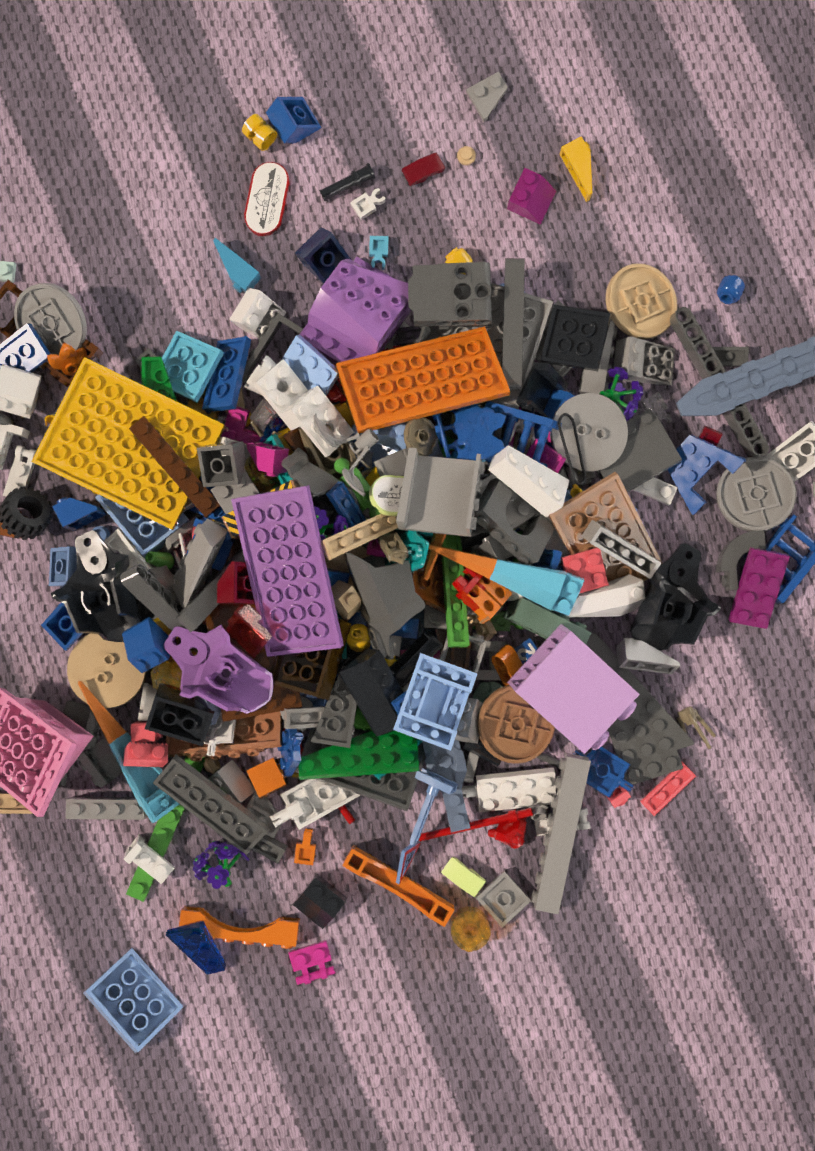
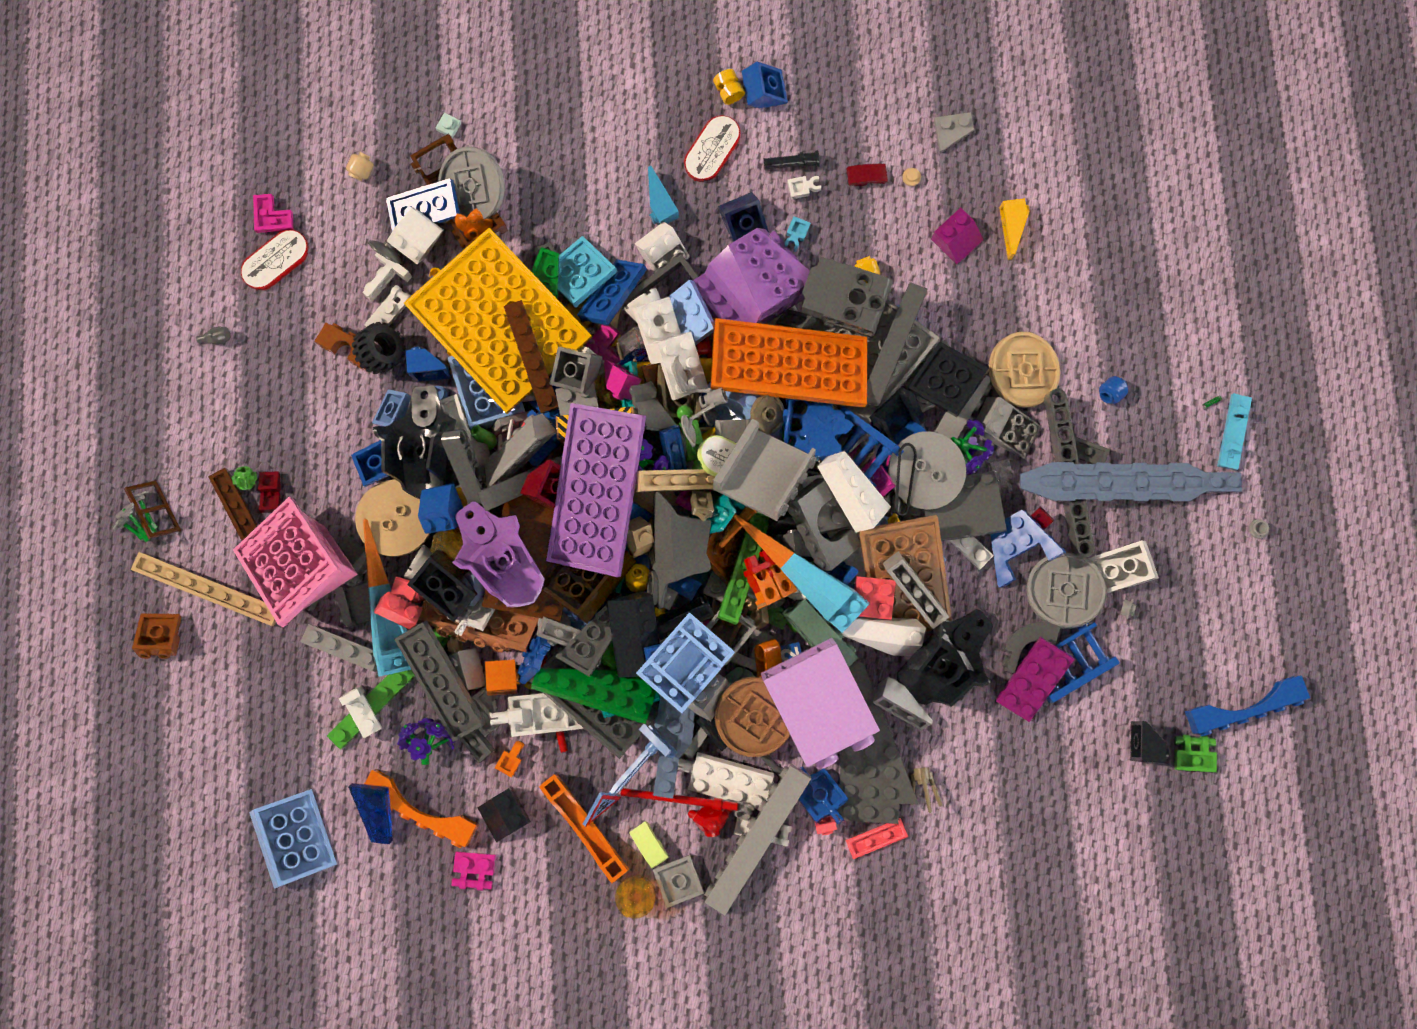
camera: 20 degrees right, 5 degrees down
(247, 631) = (538, 530): clear red plate -> none

